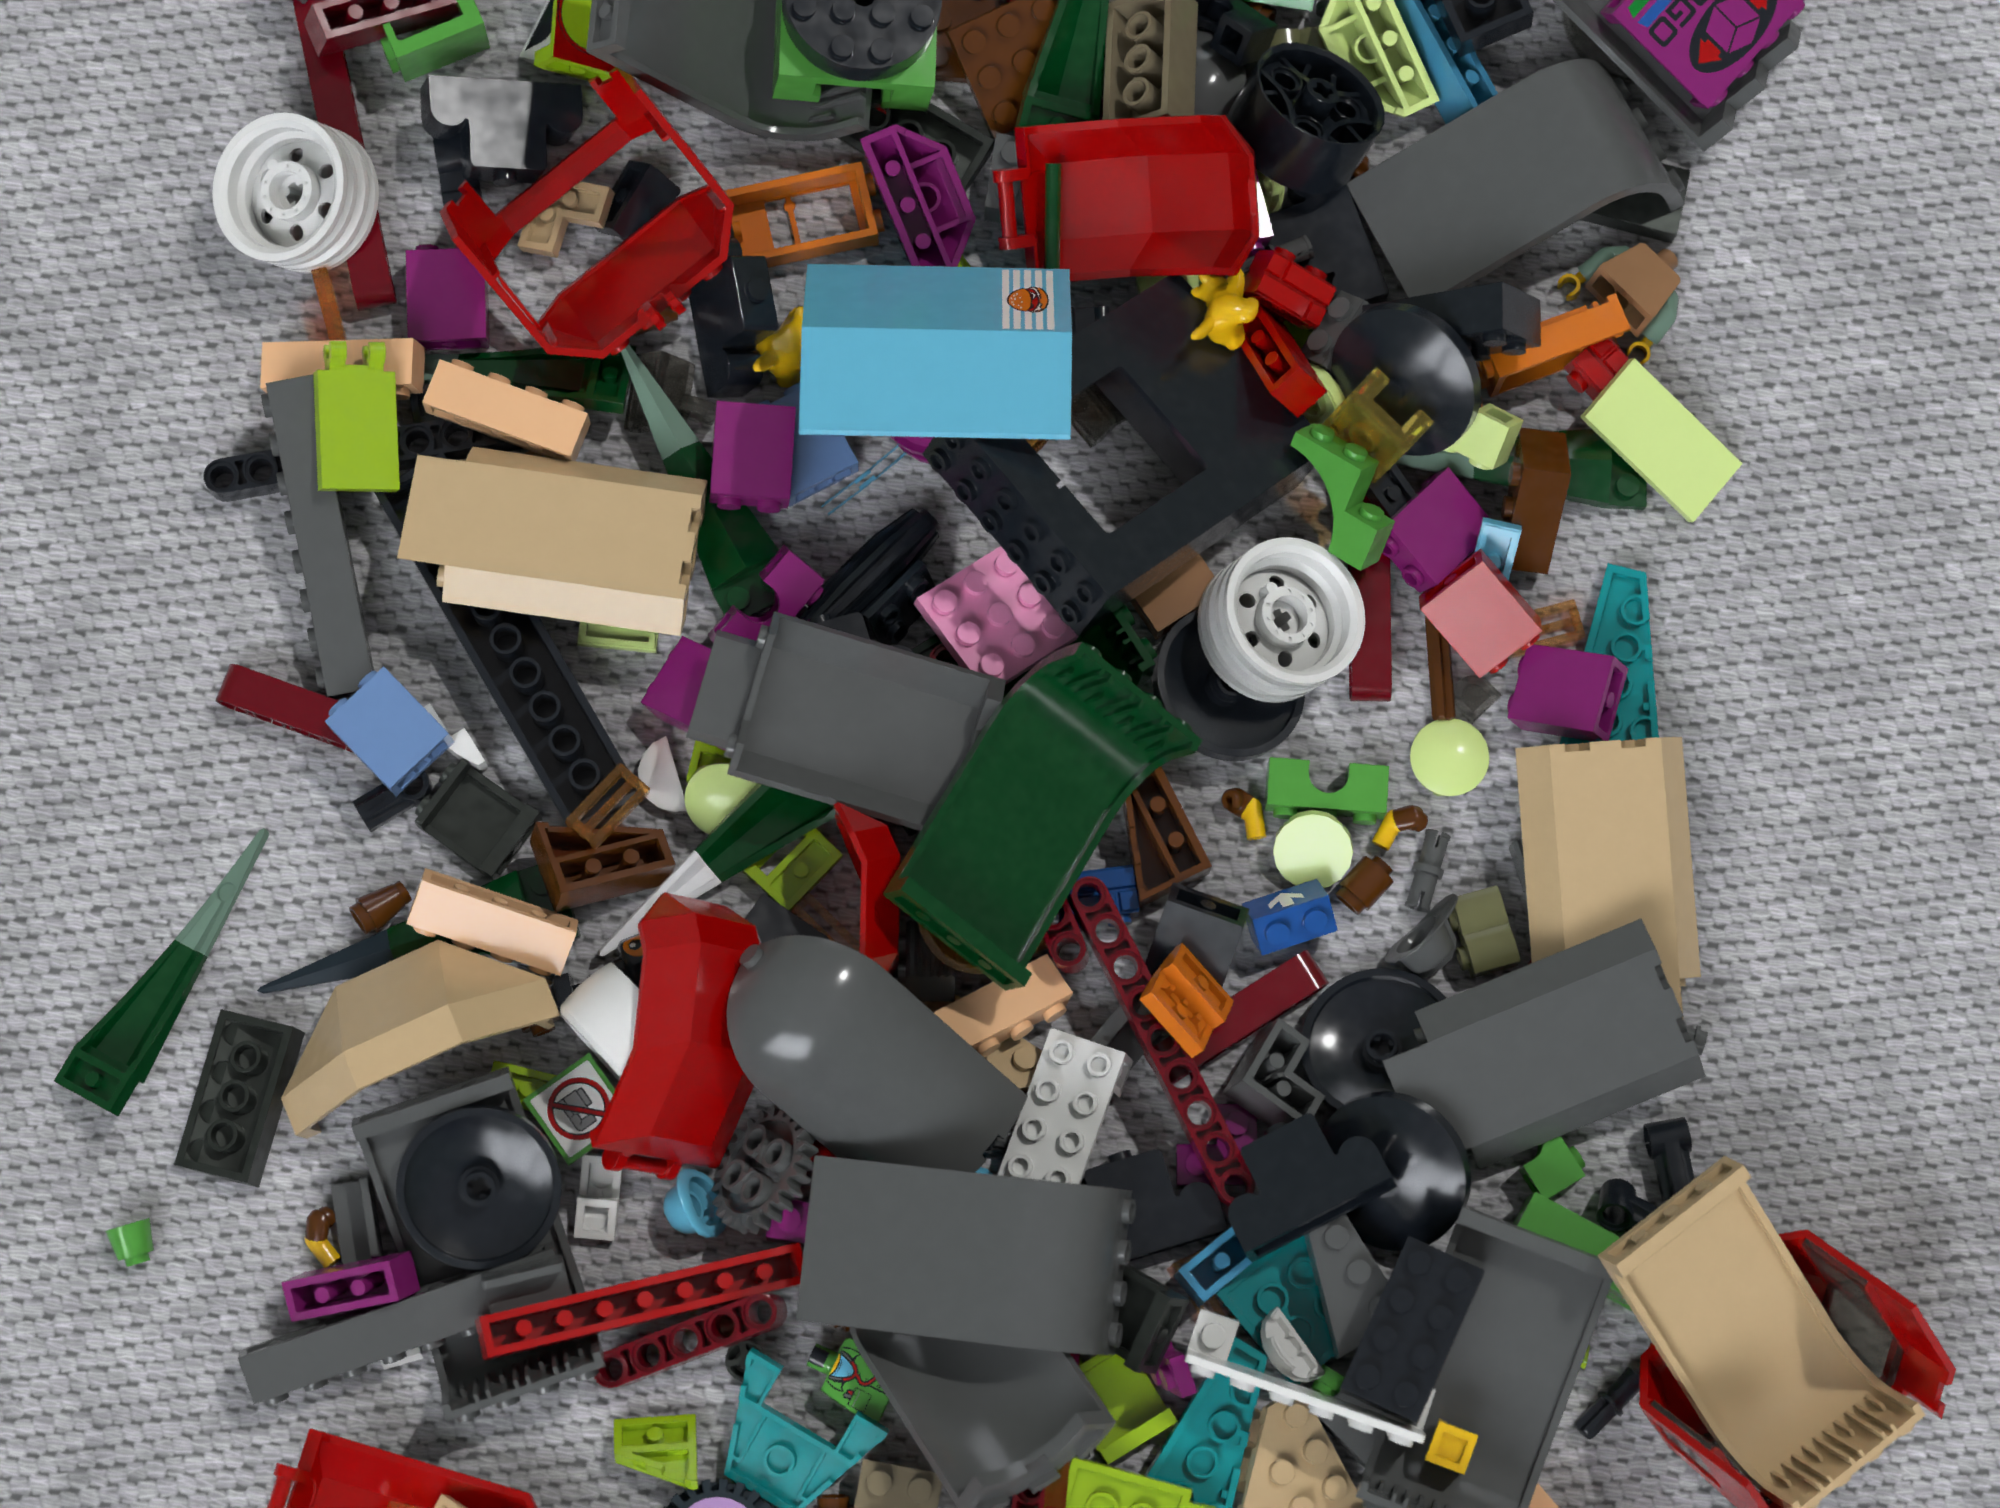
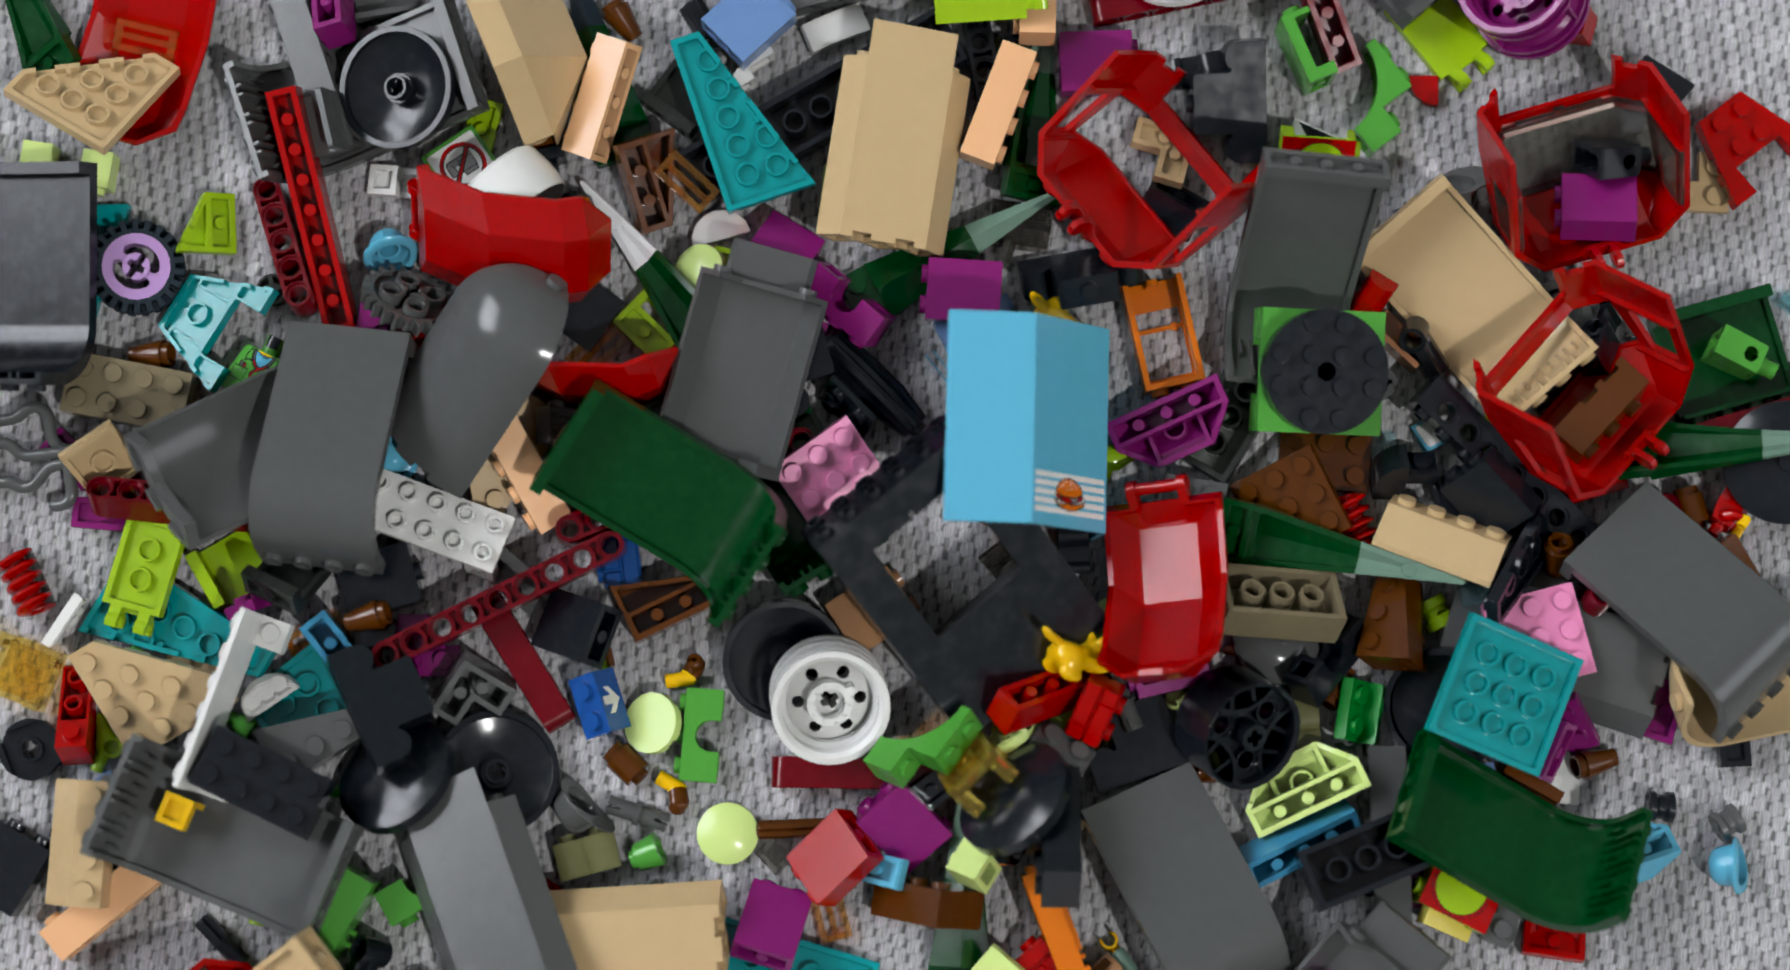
camera: 90 degrees right, 5 degrees up
(395, 630) = (835, 28): none -> white slope
(553, 738) = (741, 143): none -> teal wing
(1052, 215) = (1150, 523): dark green bar -> none
(1186, 1000) = (528, 618): orange slope -> none
(1186, 1212) = (369, 616): none -> reddish brown cone
(1479, 856) = (647, 853): none -> bright green hat

